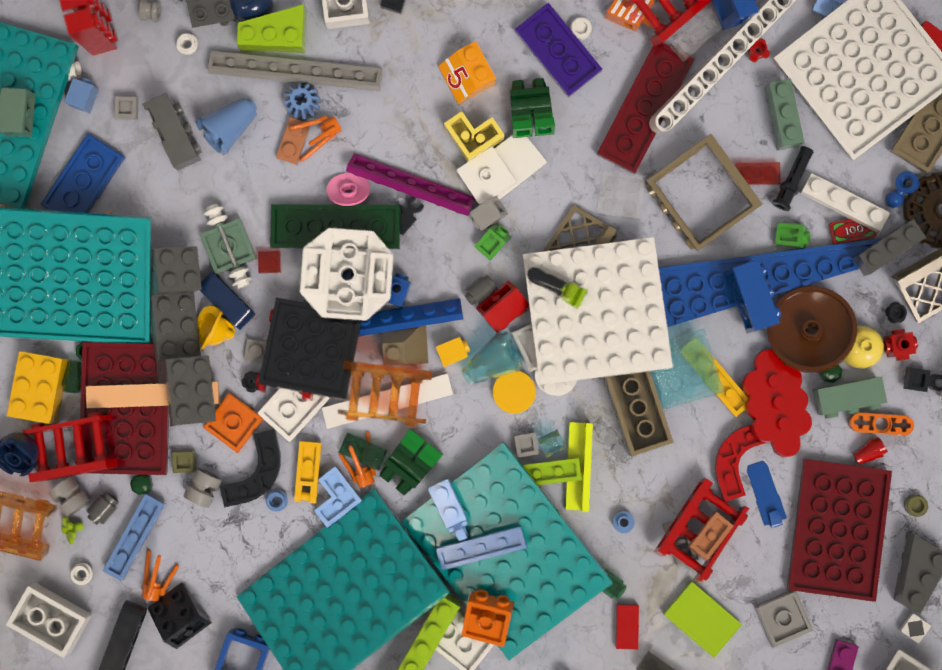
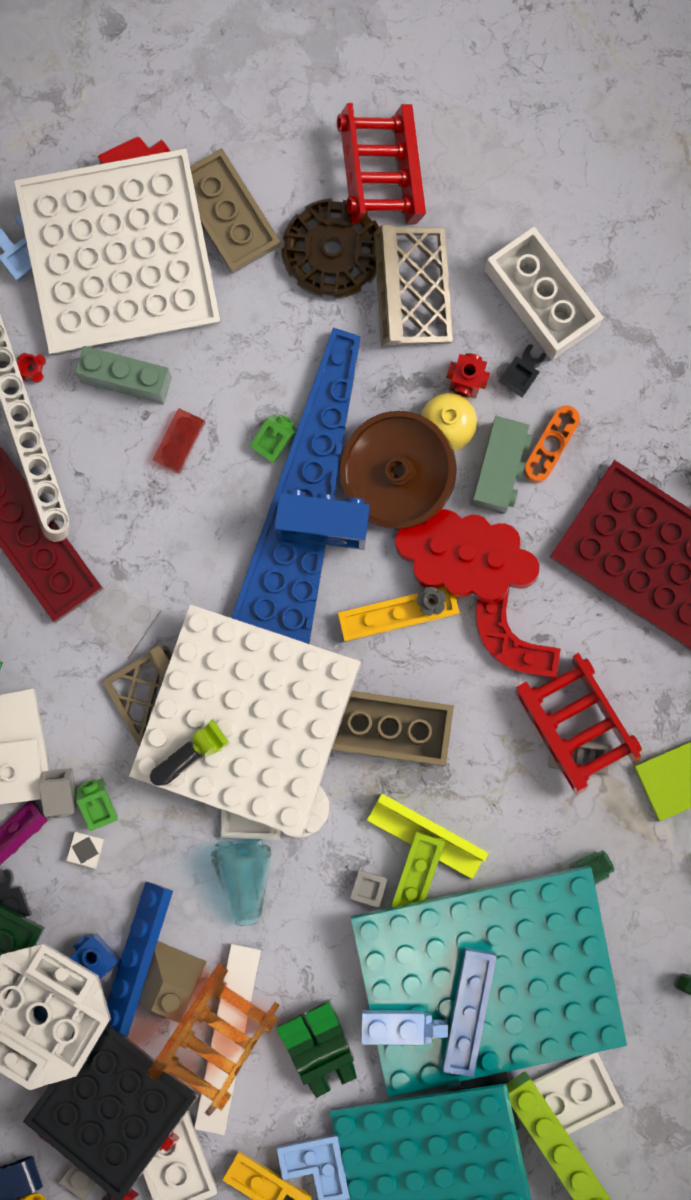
camera: 70 degrees left, 5 degrees down
(363, 476) = (306, 1117): orange plant -> none
(366, 451) = (275, 1102): clear green plate -> none
(453, 351) = (207, 923): yellow brick -> none
(460, 249) = (85, 849): none -> tile
(480, 290) = (148, 850): dark grey brick -> none
(487, 618) = (561, 1048): orange plate -> none
(503, 306) = (182, 832): red brick -> none
(514, 392) = (296, 871): yellow tile -> none
(551, 443) = (382, 856): clear light blue plate -> none
(616, 522) = (513, 810): medium blue plate -> none
(627, 626) = (653, 873): red tile -> none
(692, 374) = (380, 639): clear light blue plate -> none
(710, 536) = (590, 717): nougat plate -> none
(728, 394) = (423, 601): none -> dark grey plate
(731, 171) = (160, 470): dark tan window -> none
(766, 494) = (570, 622): blue piece -> none
(789, 187) = (214, 411): black pin -> none
(831, 375) = (465, 473): dark green tile -> none
(845, 203) = (266, 356): white plate -> none
(849, 231) = (303, 363): red tile -> none
(870, 451) = (579, 473): red cone -> none
(889, 247) = (345, 331): dark grey brick -> none
(895, 198) = (291, 295): blue plate -> none
(900, 317) = (427, 354): black plate -> none
(916, 505) = (669, 451): olive tile -> none

